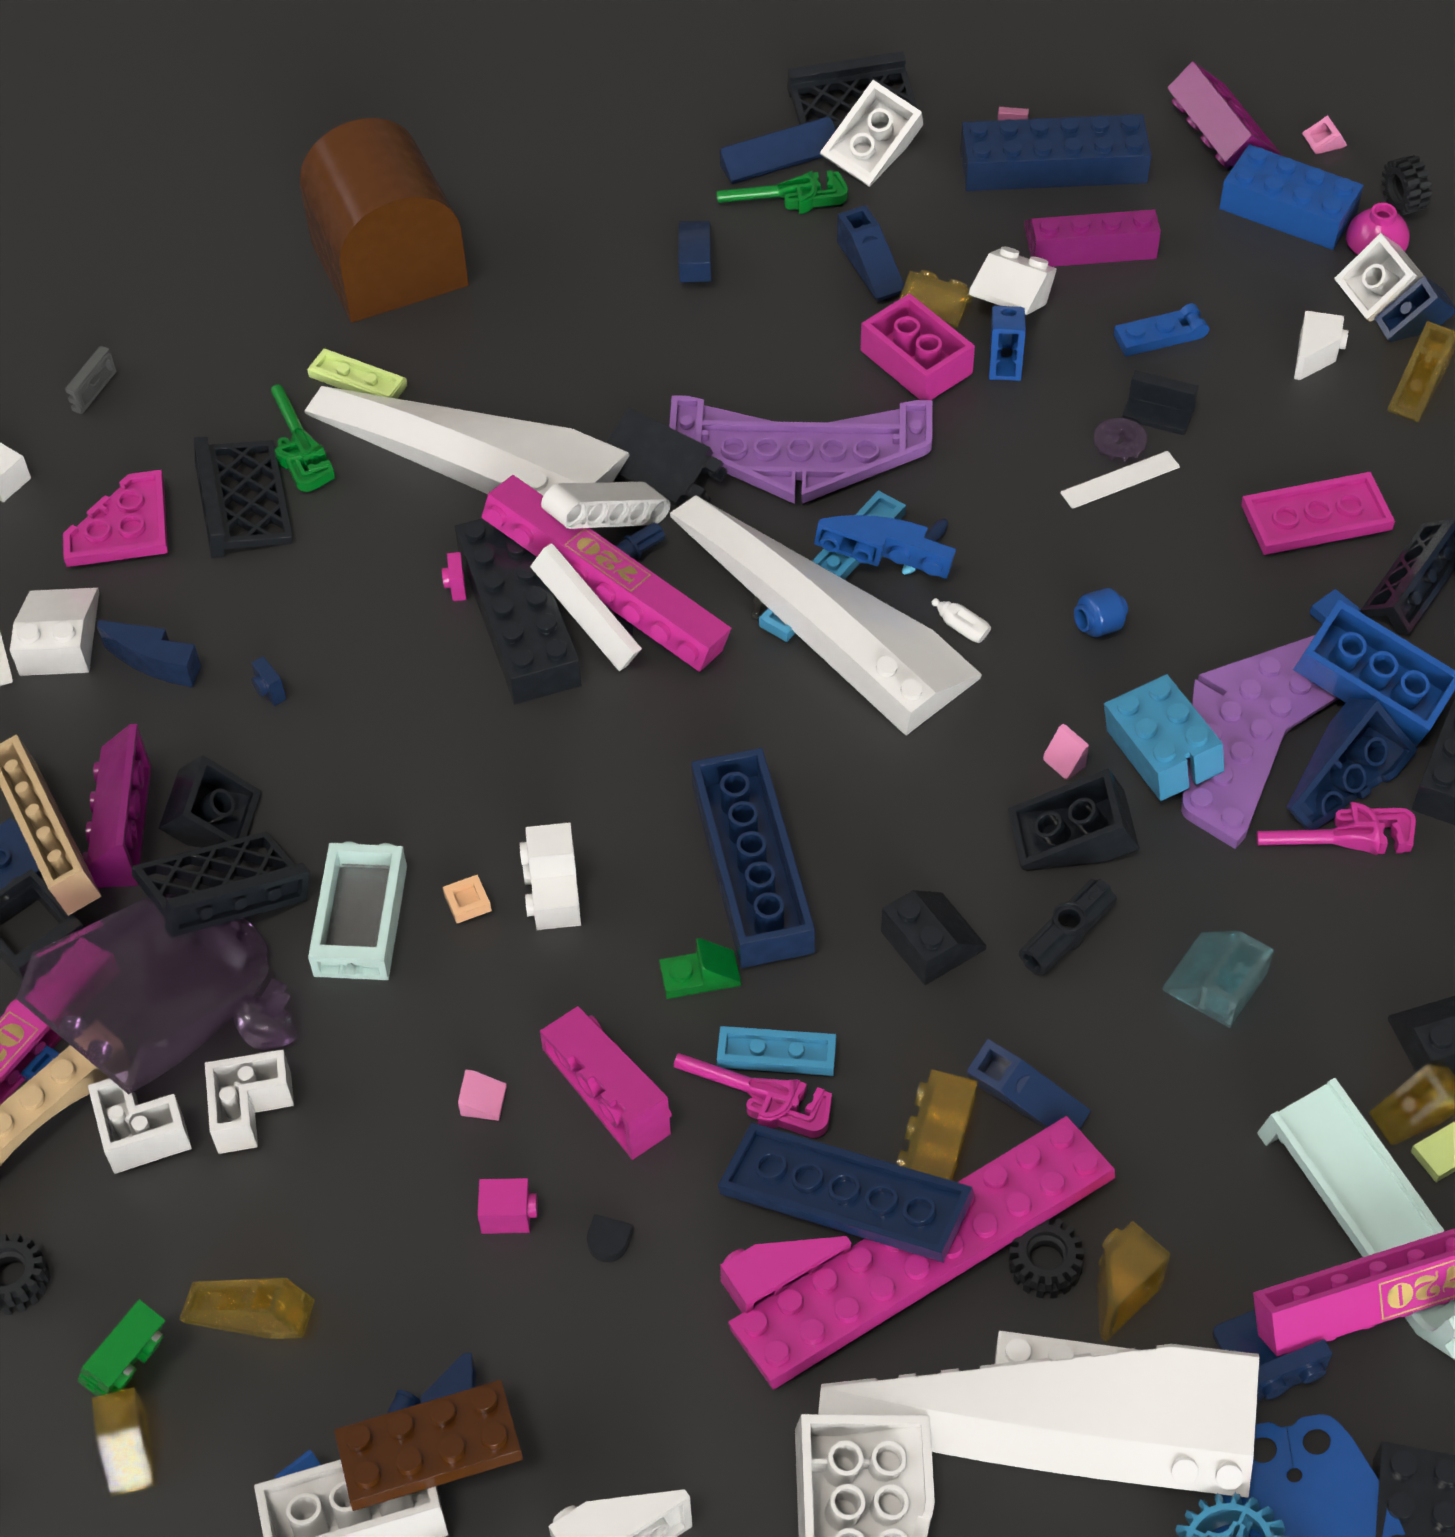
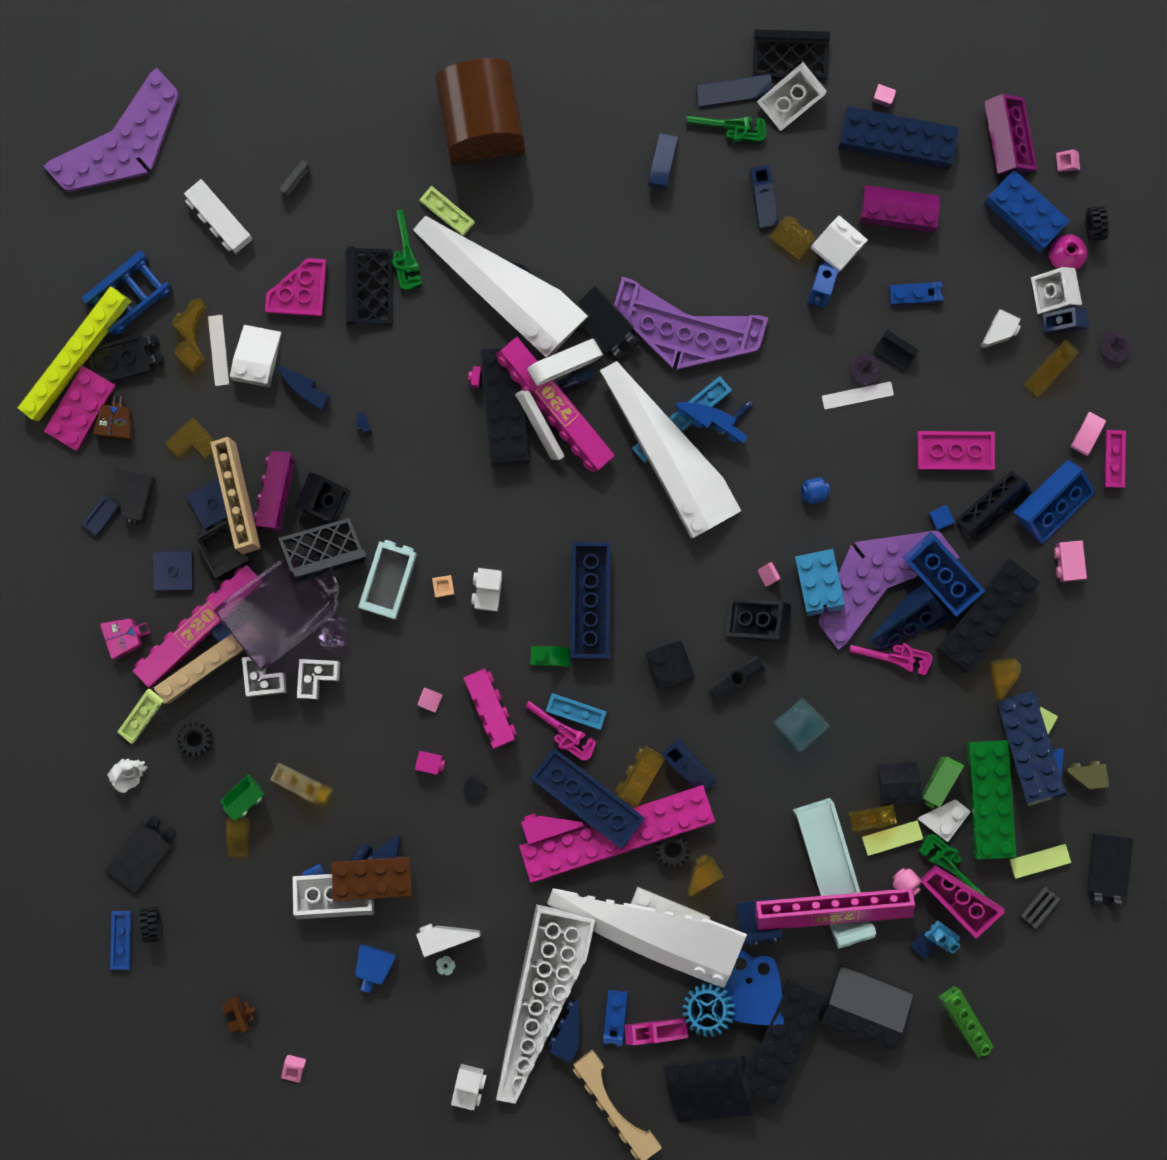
camera: 10 degrees right, 30 degrees up
(917, 348) = (770, 278): dark pink brick -> none
(963, 620) = (741, 473): white piece -> none

